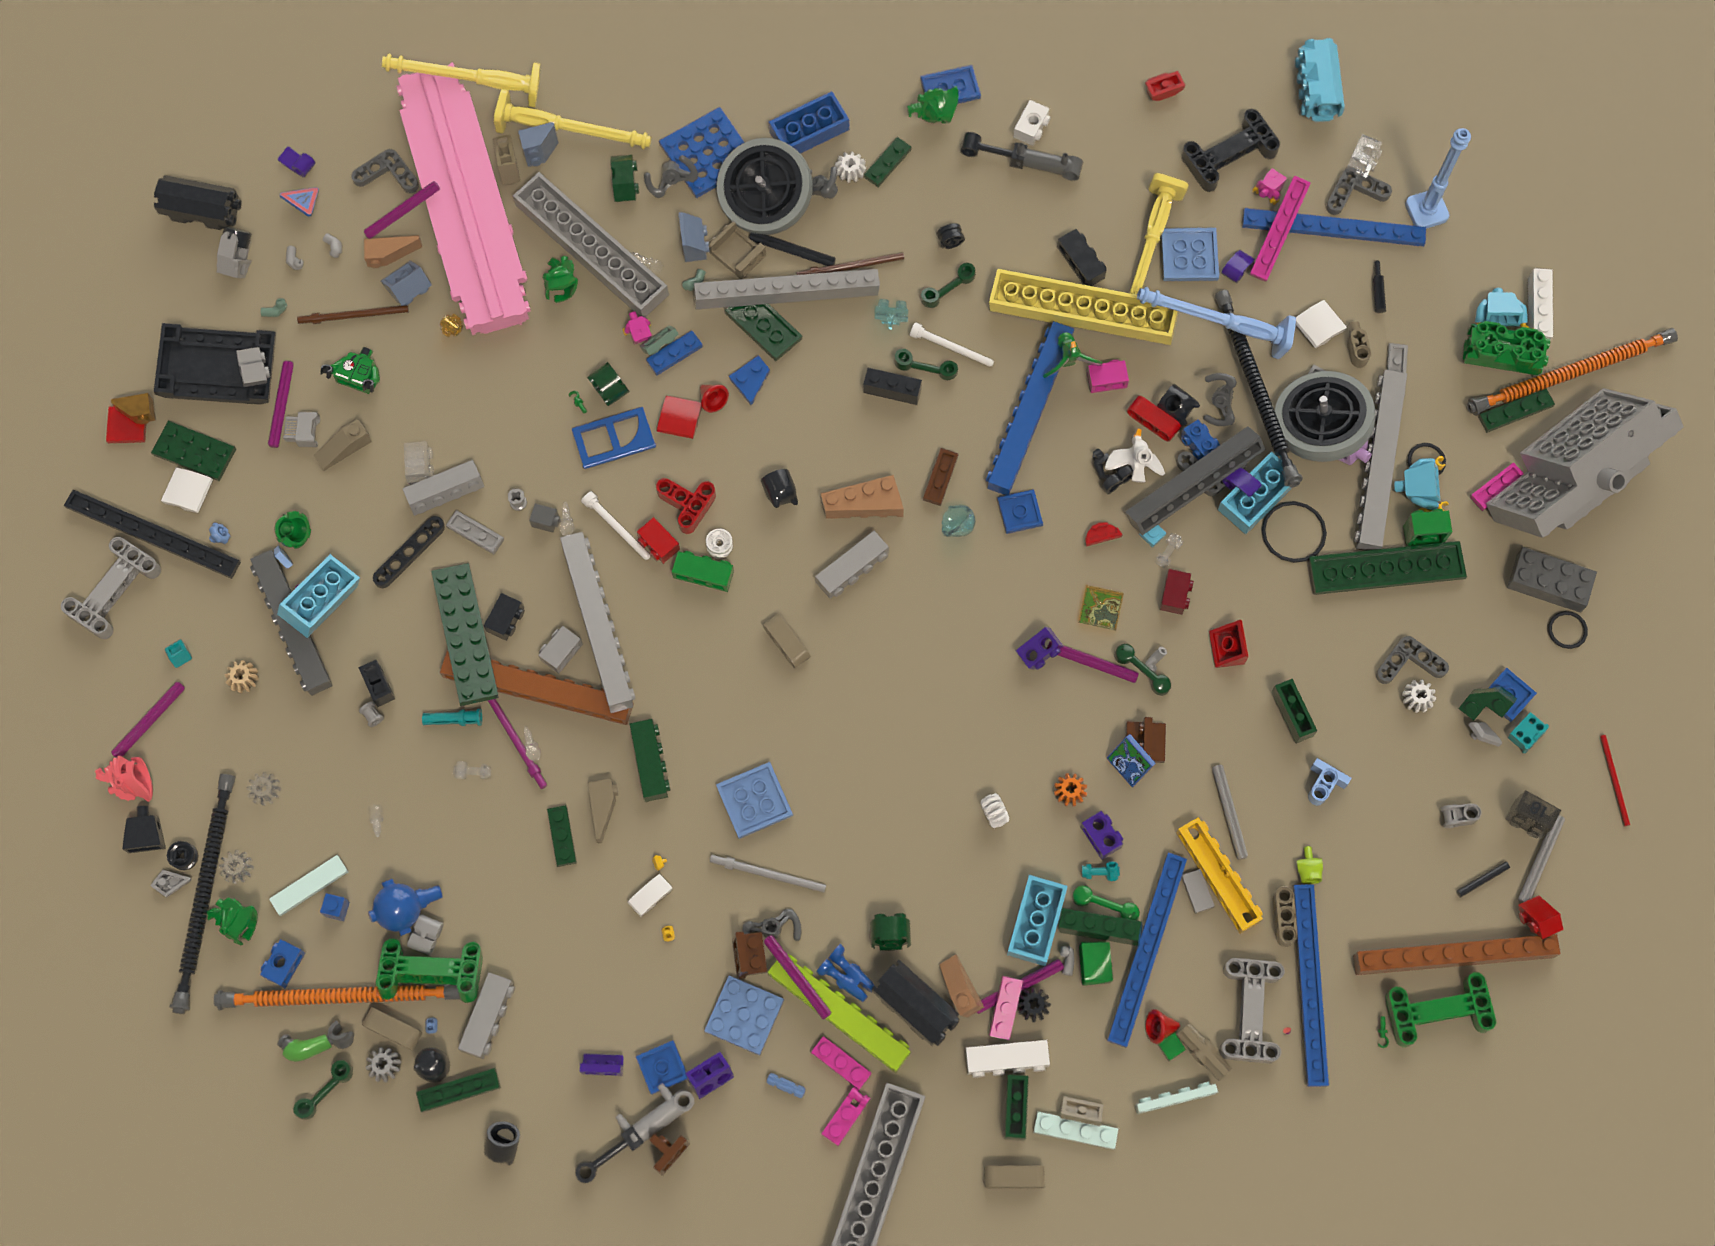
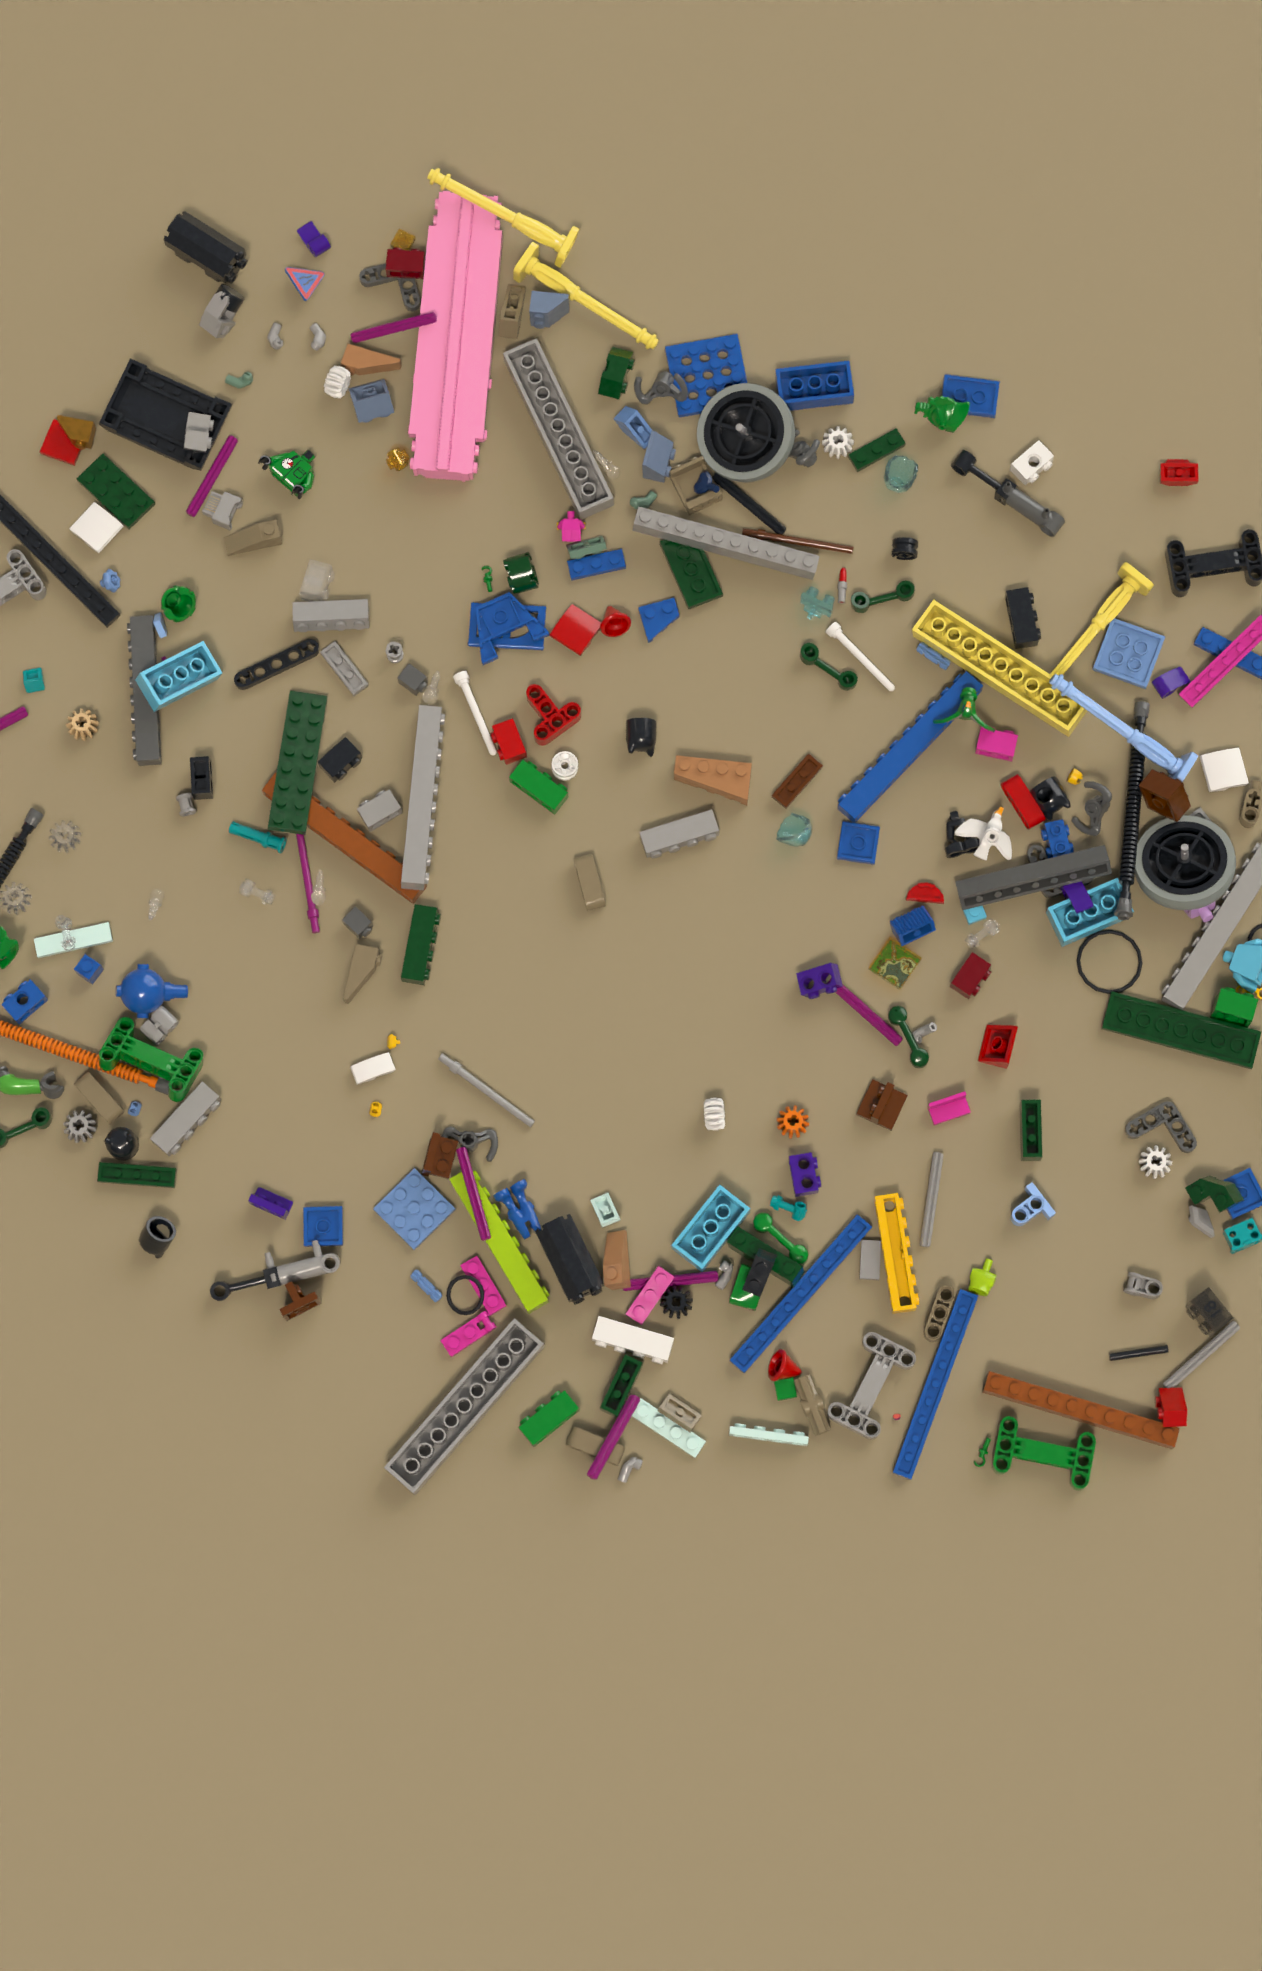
camera: 25 degrees right, 5 degrees up
(295, 873) = (65, 925): none -> clear bar
(317, 318) = (275, 404): reddish brown bar -> none
(367, 276) = (337, 382): none -> white gear
(380, 134) = (403, 240): none -> clear yellow plate
(390, 151) = (405, 263): none -> dark red brick
(560, 278) = (516, 452): green helmet -> none
(562, 836) = (314, 983): dark green plate -> none
(581, 762) = (358, 923): none -> dark grey brick
(605, 431) = (500, 618): none -> blue wing
(659, 218) = (634, 426): none -> medium blue slope
(709, 1075) = (361, 1249): dark purple brick -> none
(745, 244) = (705, 483): none -> dark blue rock
(754, 800) = (500, 1018): medium blue plate -> none
(827, 1060) = (449, 1292): none -> black piece
(890, 932) = (573, 1186): dark green brick -> none
(892, 386) = (787, 676): black brick -> none
(907, 290) = (842, 586): none -> light grey piece
(919, 173) = (900, 474): none -> clear light blue hair
(929, 943) = (605, 1210): none -> light aqua slope
(957, 1167) = (548, 1417): none -> green brick
(1016, 320) = (933, 655): none -> medium blue axle
(1030, 1156) = (613, 1437): none -> magenta axle
(1054, 1185) = (627, 1467): none -> light grey arm
(1103, 566) = (912, 925): none -> blue brick
(1104, 943) = (759, 1272): none -> black brick
(1131, 760) = (859, 1117): tile -> none
(1189, 379) = (1074, 776): none -> yellow hinge
(1208, 721) = (948, 1108): none -> dark pink panel
(1271, 186) = (1237, 614): dark pink piece -> none
(1281, 363) = (1165, 795): none -> reddish brown brick

